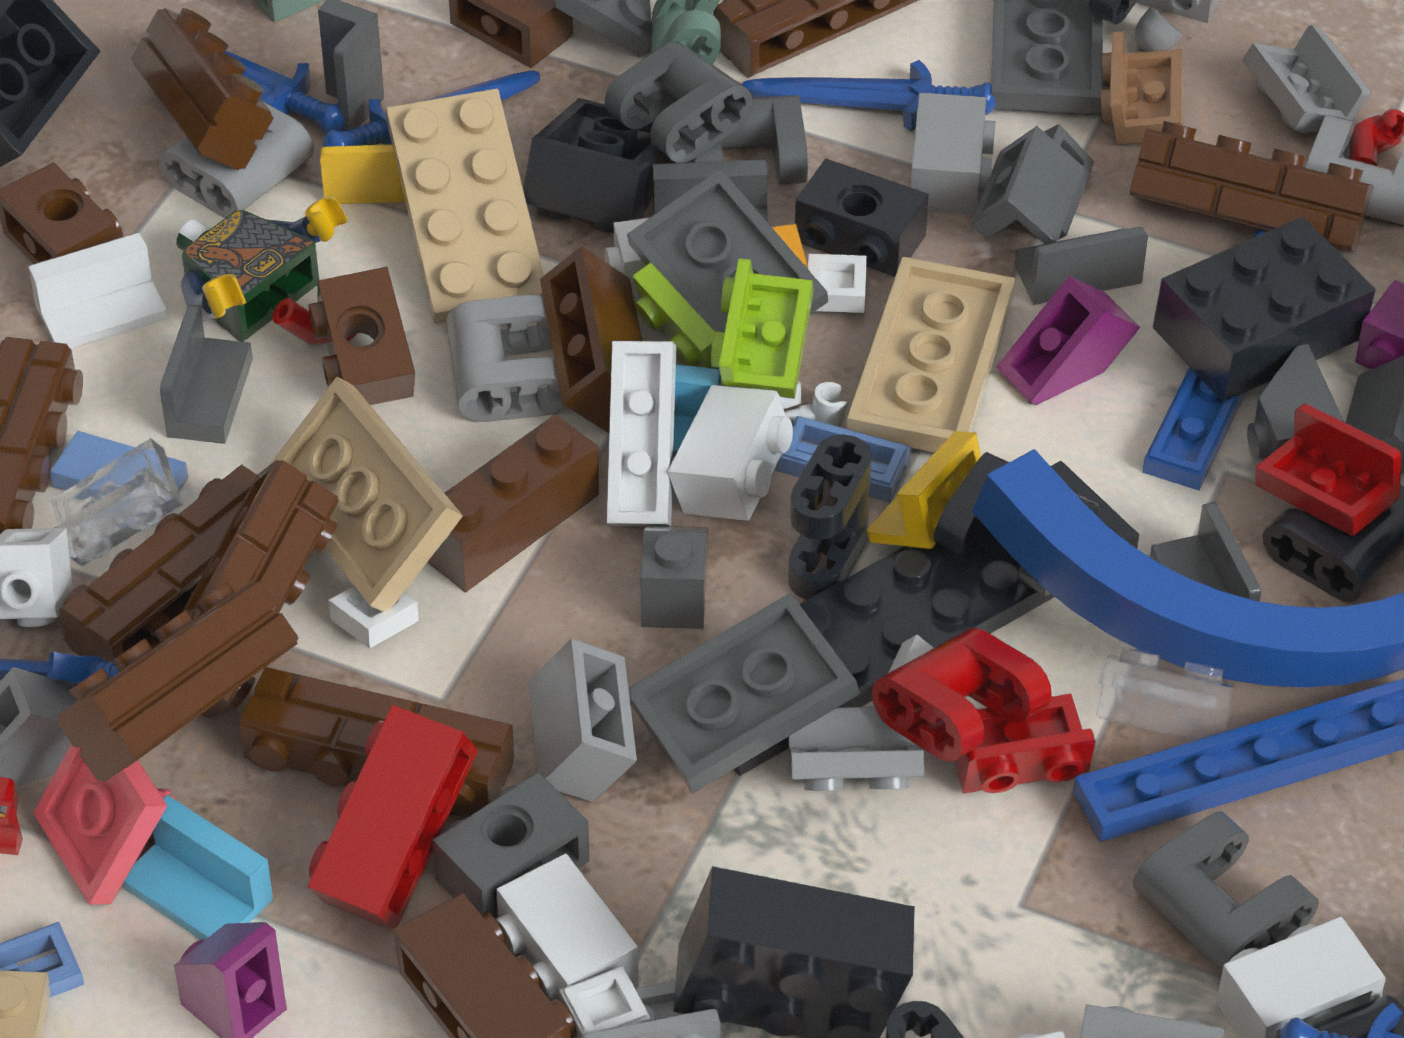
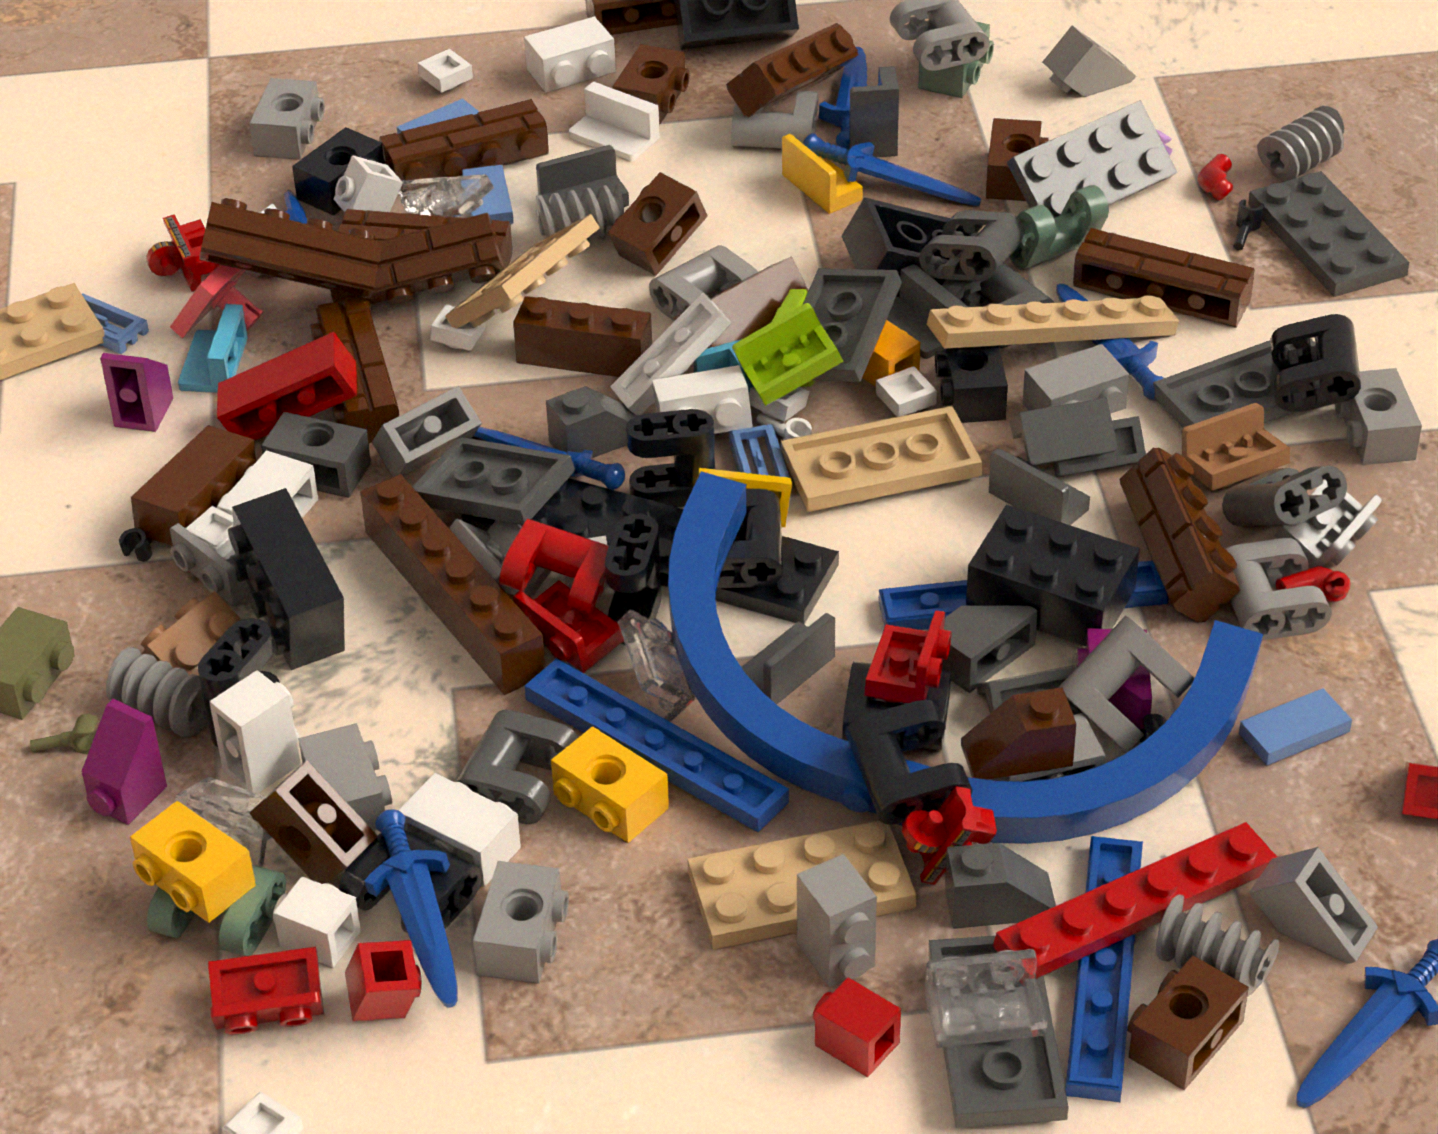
camera: 60 degrees right, 5 degrees down
(253, 264) = (681, 153): torso -> none
(268, 399) = (558, 215): none -> light grey piece
(464, 200) = (808, 204): tan plate -> none
(726, 611) = (609, 474): none -> blue sword
(844, 114) = (1051, 322): none -> tan plate
(868, 816) = (453, 584): none -> reddish brown brick
(995, 605) = (634, 567): none -> black connector
(1067, 342) = (950, 509): magenta slope -> none
(1156, 32) = (1310, 435): light grey hinge -> none
(1258, 110) = (1282, 496): none -> dark grey connector
(1315, 821) = (610, 784): none -> yellow brick

